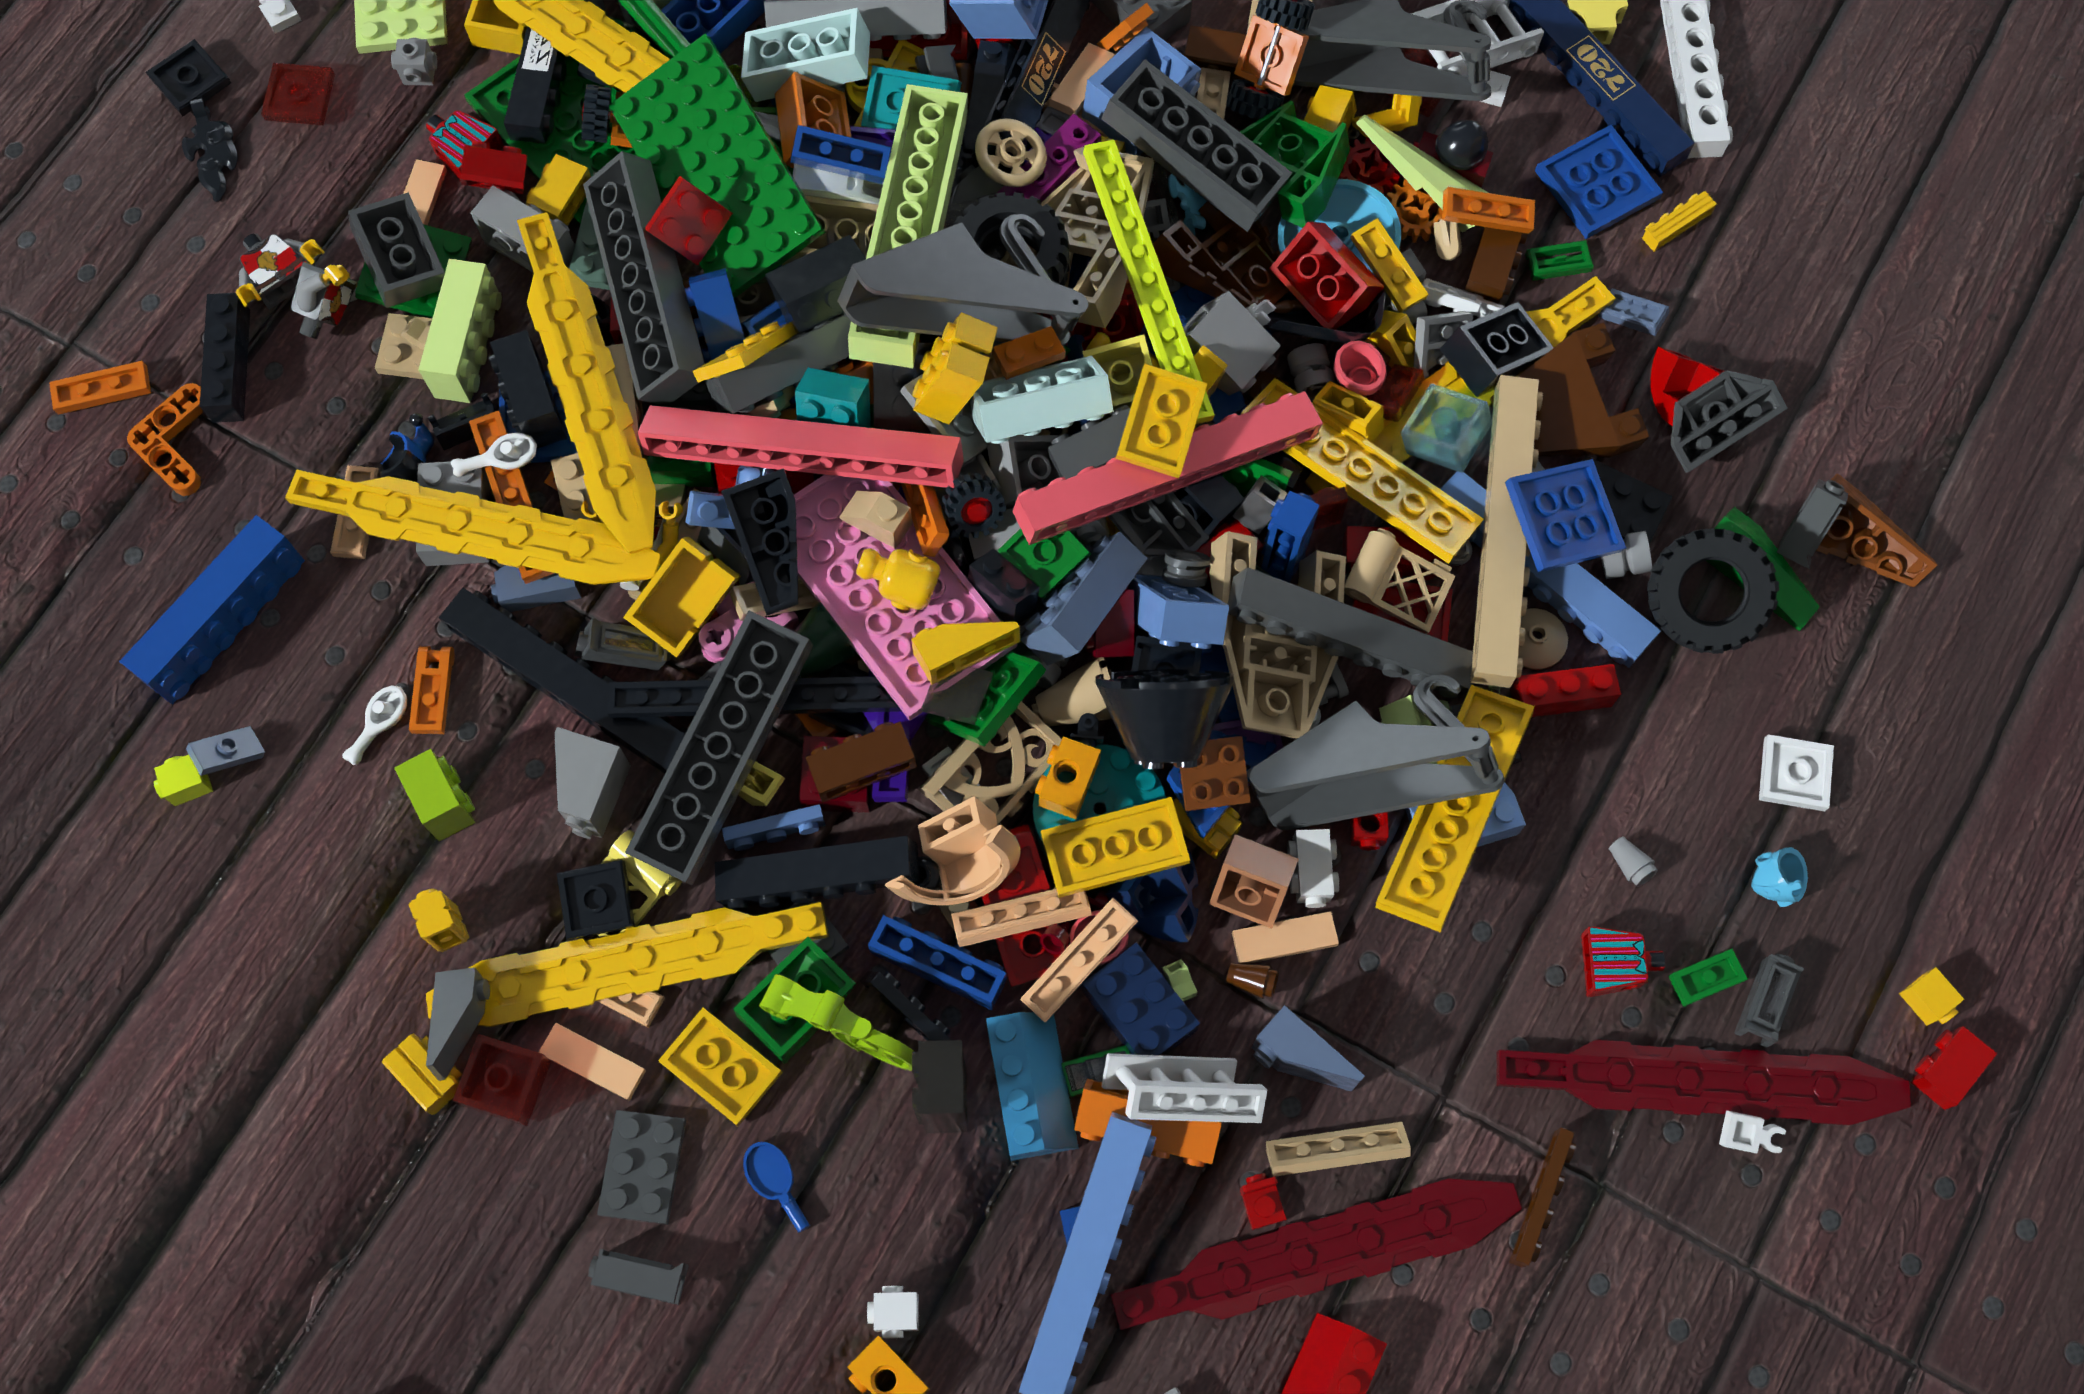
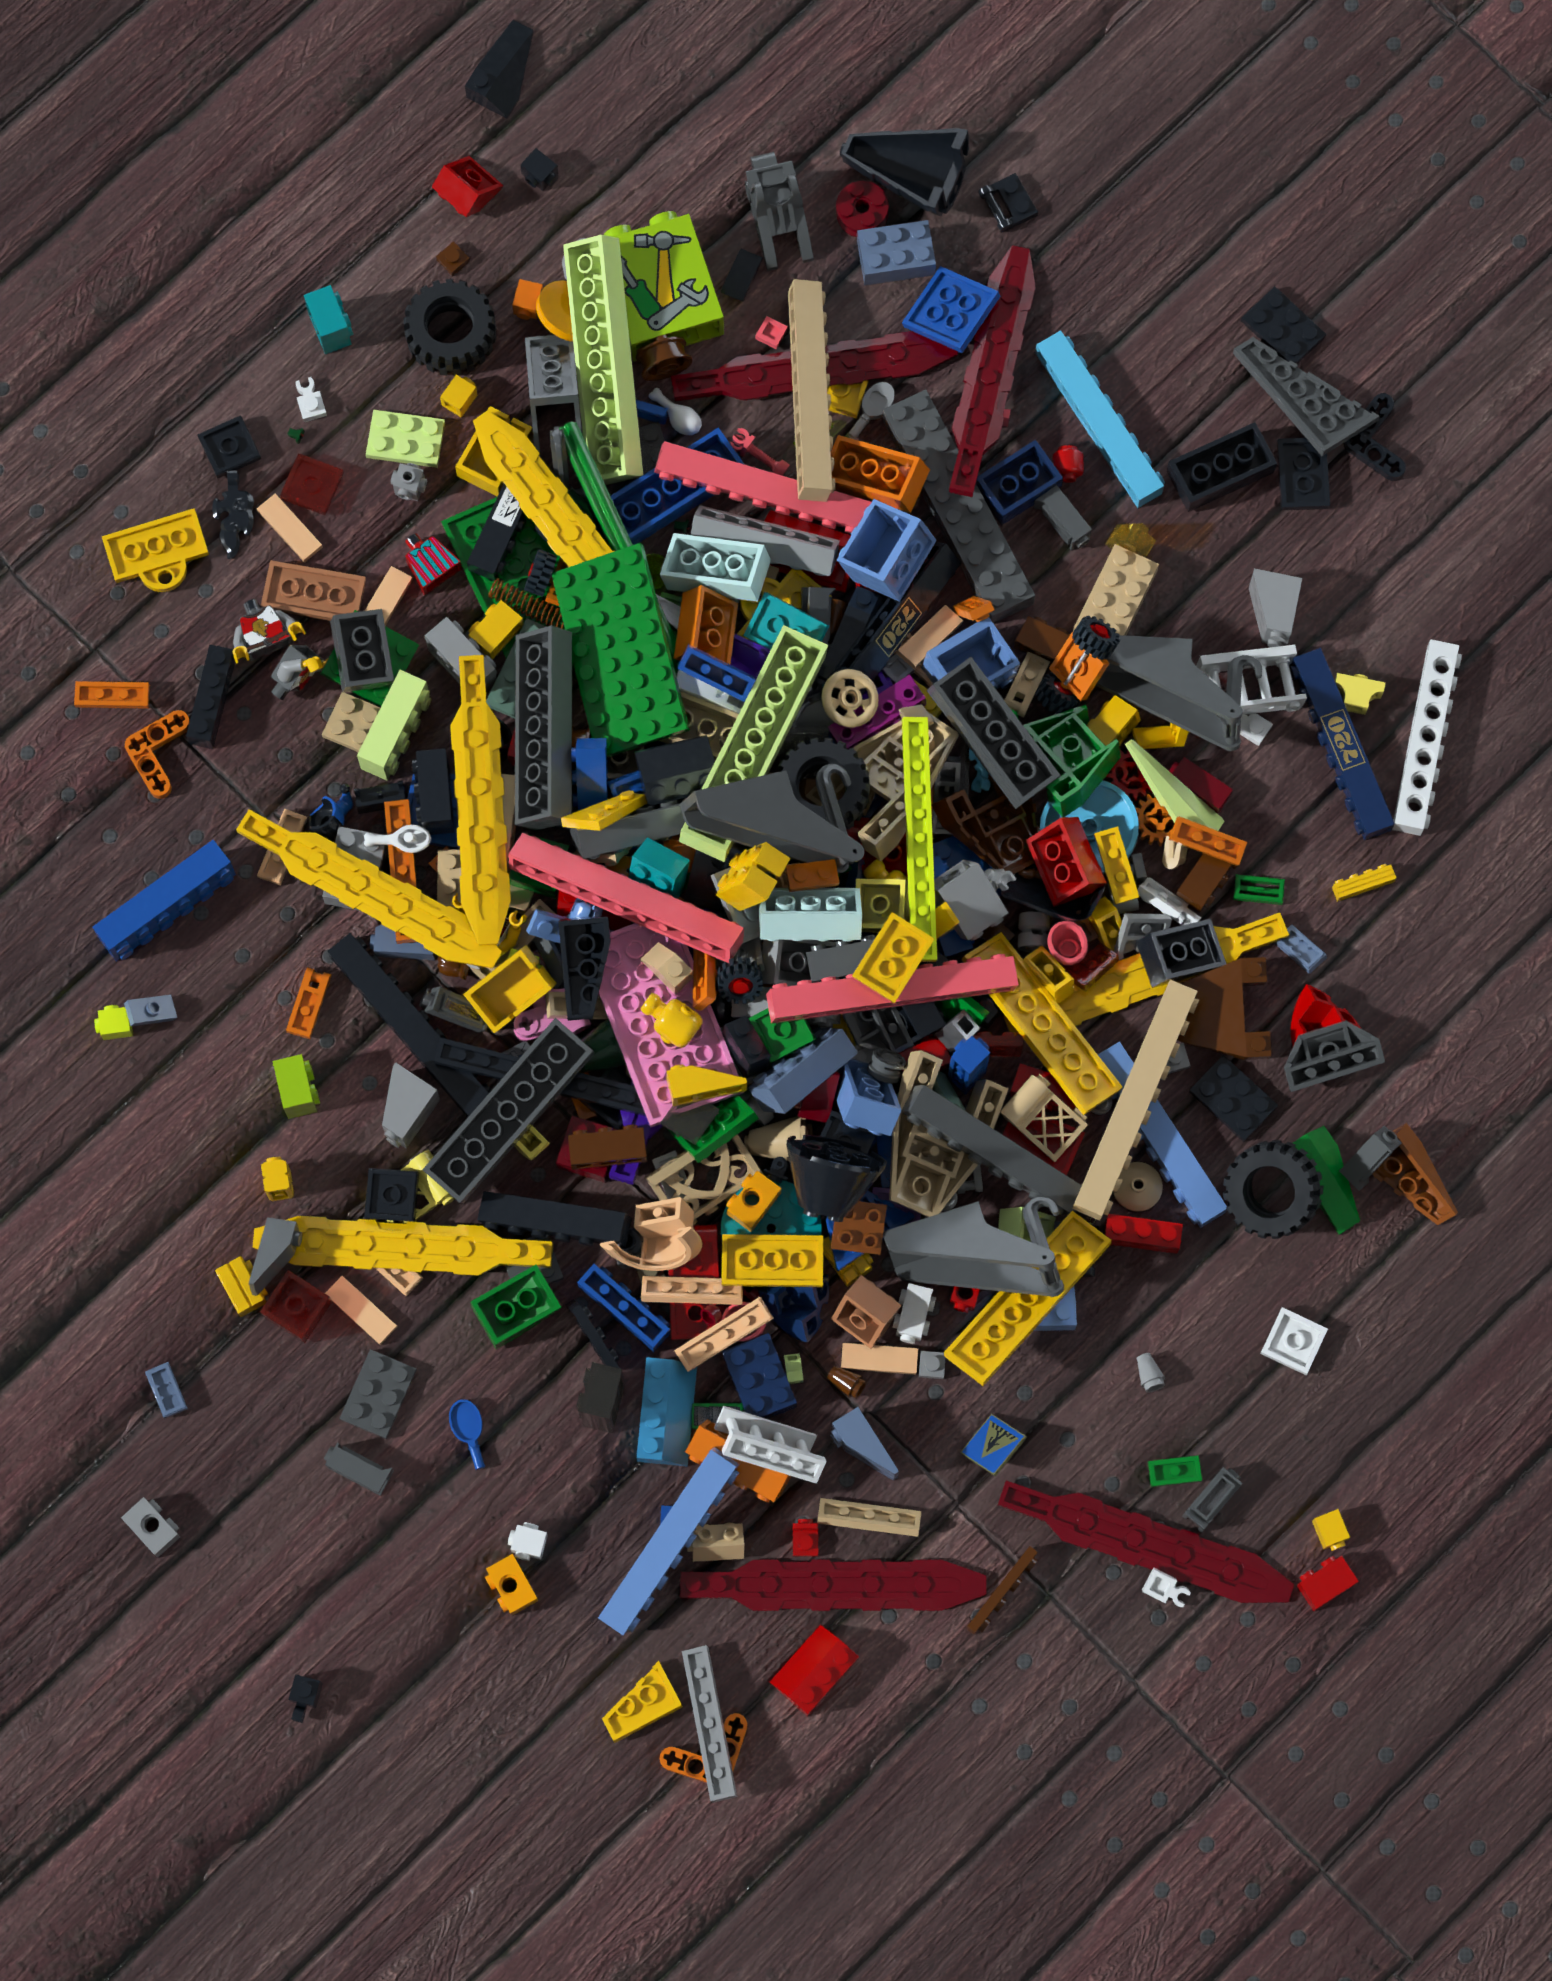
camera: 15 degrees right, 5 degrees up
(122, 210) = (156, 549): none -> yellow plate
(268, 47) = (296, 434): none -> dark green piece
(283, 149) = (289, 528): none -> light nougat tile
(319, 208) = (312, 591): none -> nougat plate
(352, 1242) = (166, 1390): none -> sand blue plate
(382, 713) = (269, 1011): white piece -> none
(416, 332) = (362, 719): tan piece -> none
(490, 167) = (450, 598): red slope -> none
(576, 151) = (525, 599): none -> dark orange piece
(606, 597) = (453, 969): none -> reddish brown animal
(688, 220) = (588, 695): red plate -> none
(720, 1066) = (450, 1339): yellow plate -> none
(774, 828) = (532, 1176): medium blue plate -> none
(828, 1013) = (536, 1324): lime piece -> none
(1151, 1240) = (718, 1542): none -> tan brick
(1354, 927) = (932, 1365): none -> light grey plate
(1446, 427) = (1118, 1008): clear light blue brick -> none
(1462, 145) = (1207, 779): black hat -> none
(1468, 1008) = (993, 1445): none -> piece
(1565, 515) = (1179, 1103): blue plate -> none
(1598, 181) = (1311, 833): blue plate -> none
(1616, 961) = (1113, 1441): torso -> none
(1633, 558) = (1222, 1142): light grey wheel -> none
(1781, 876) = (1253, 1413): medium azure helmet -> none

